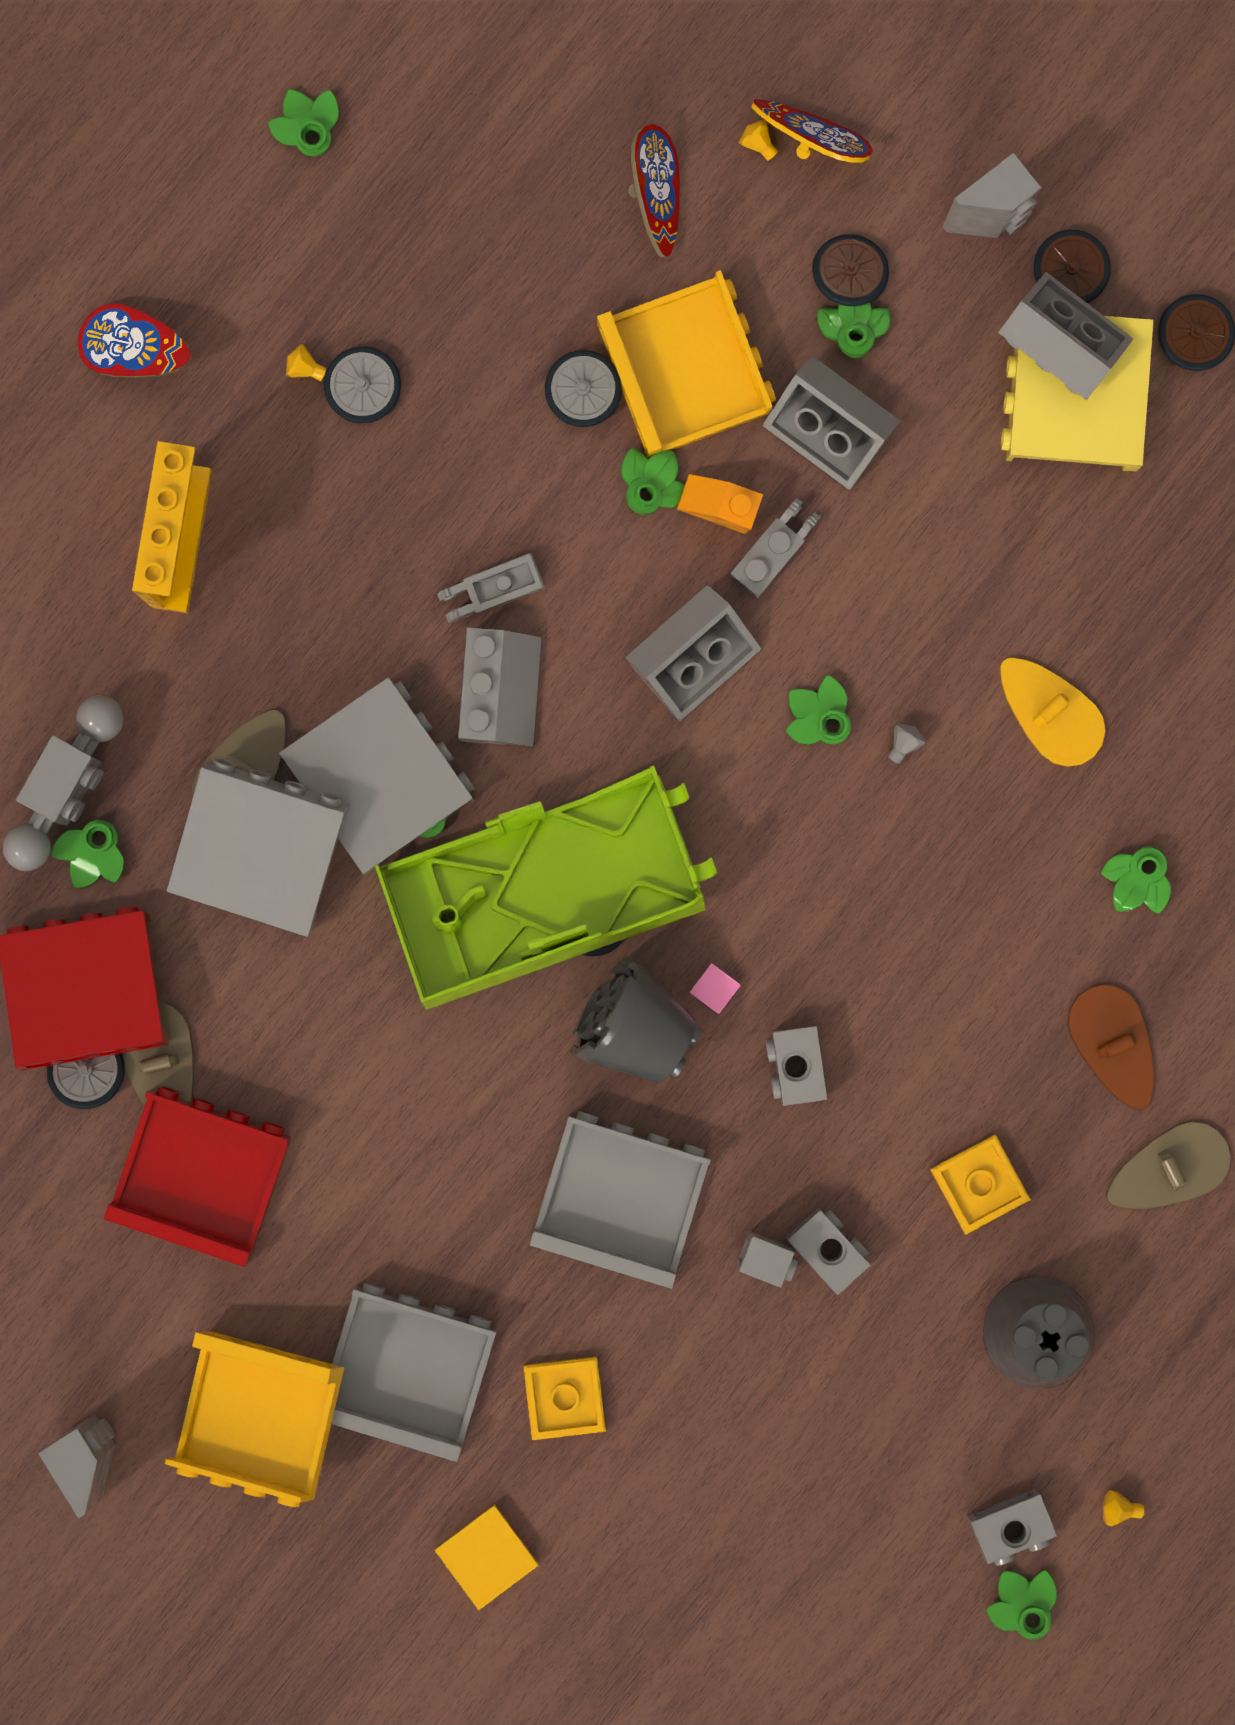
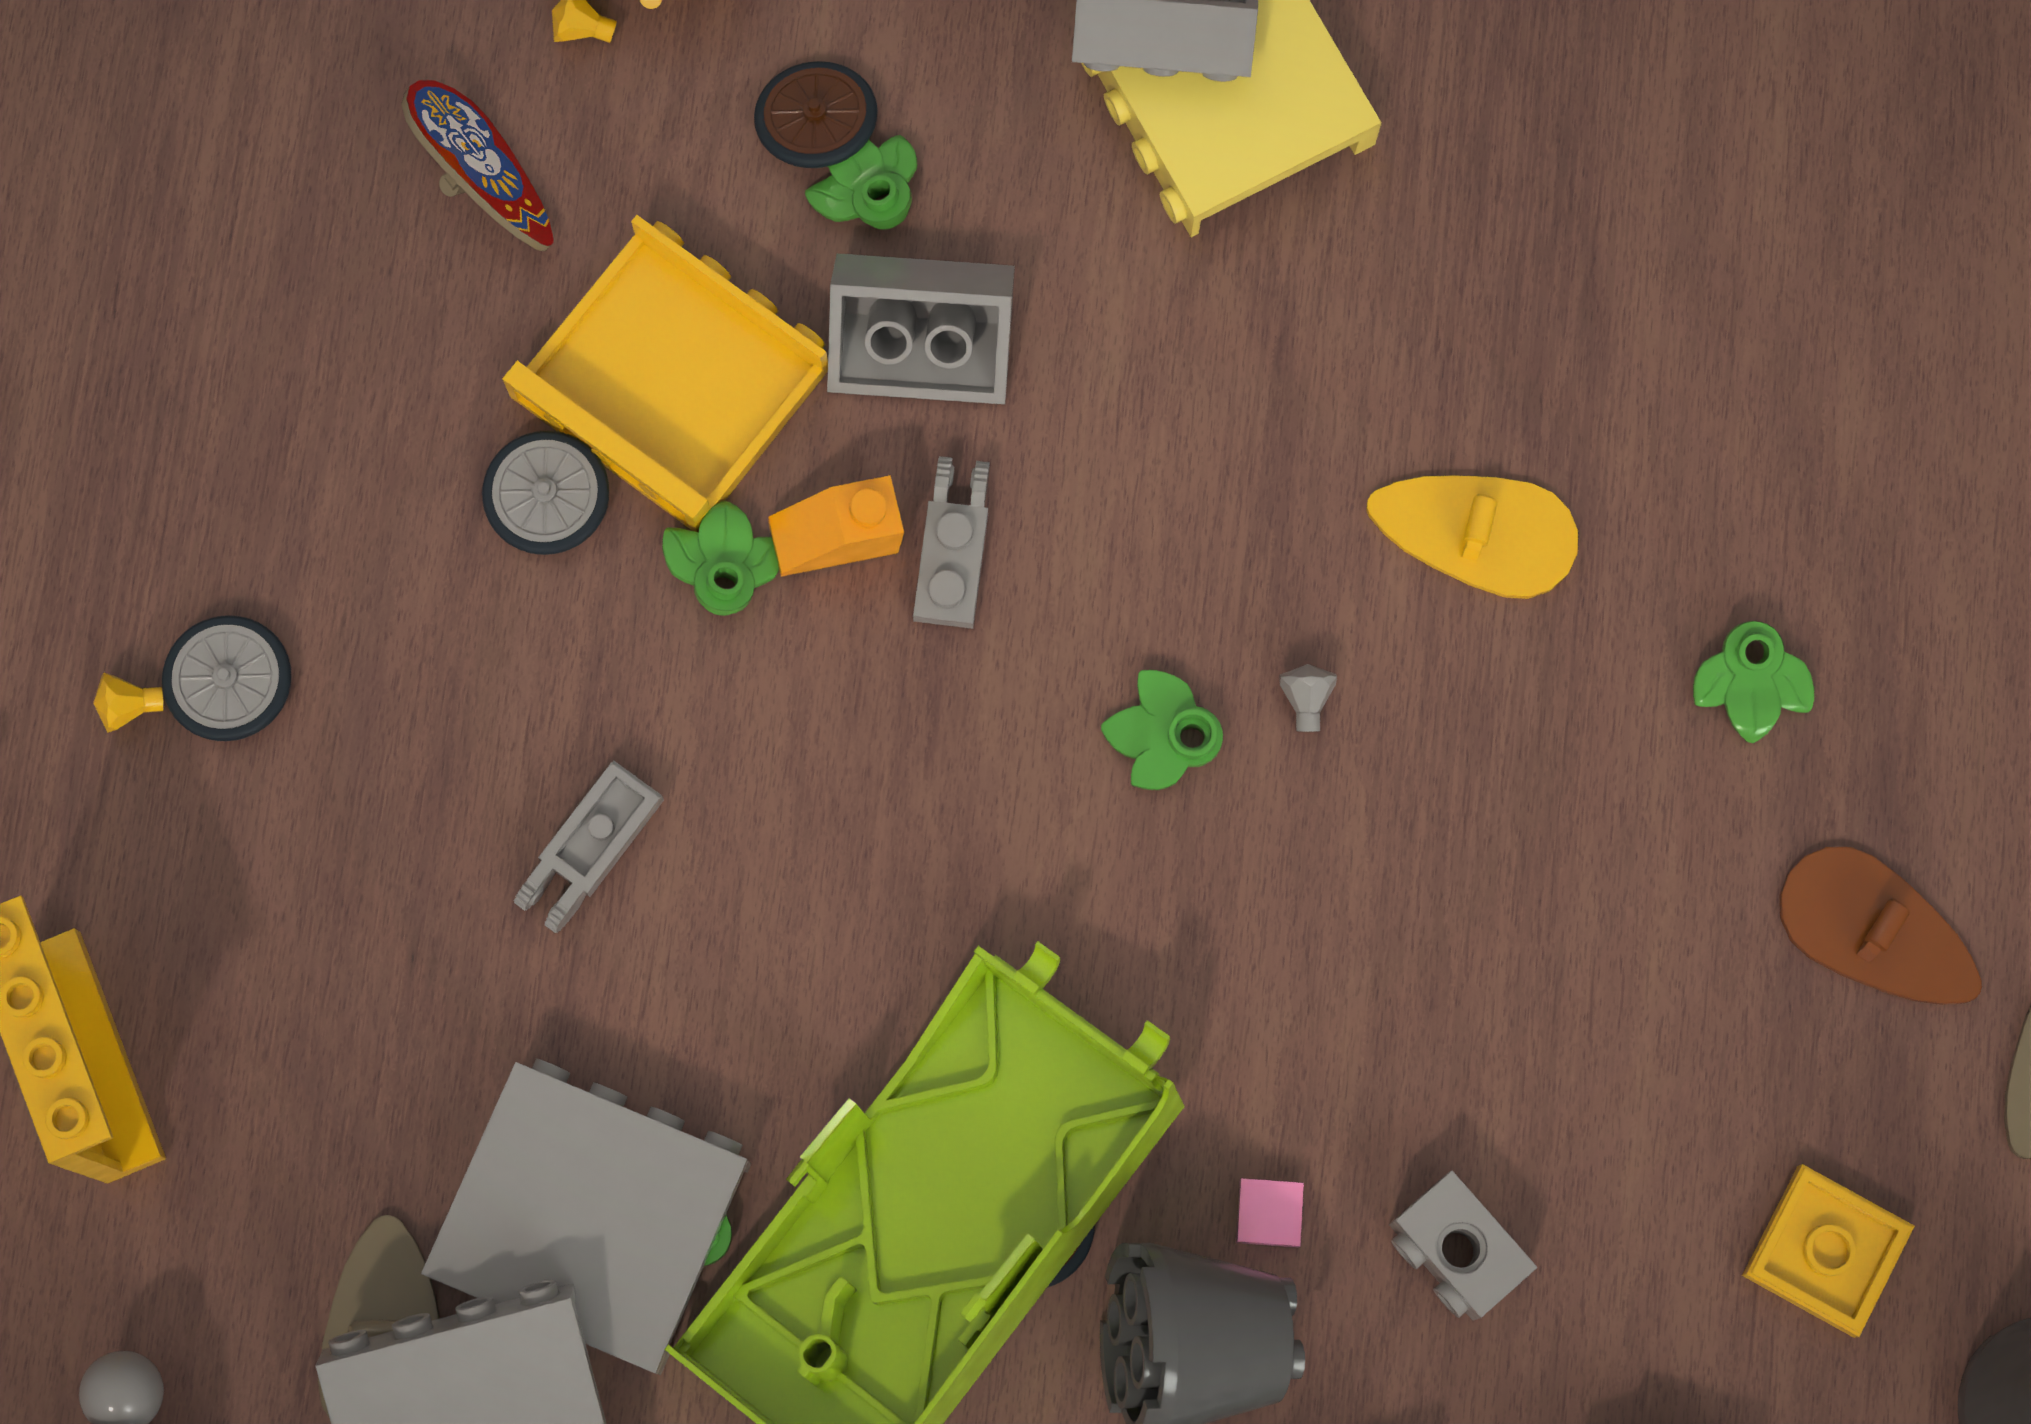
camera: 30 degrees left, 10 degrees down
(499, 687) = (687, 978): light grey slope -> none
(693, 652) = (932, 756): light grey slope -> none

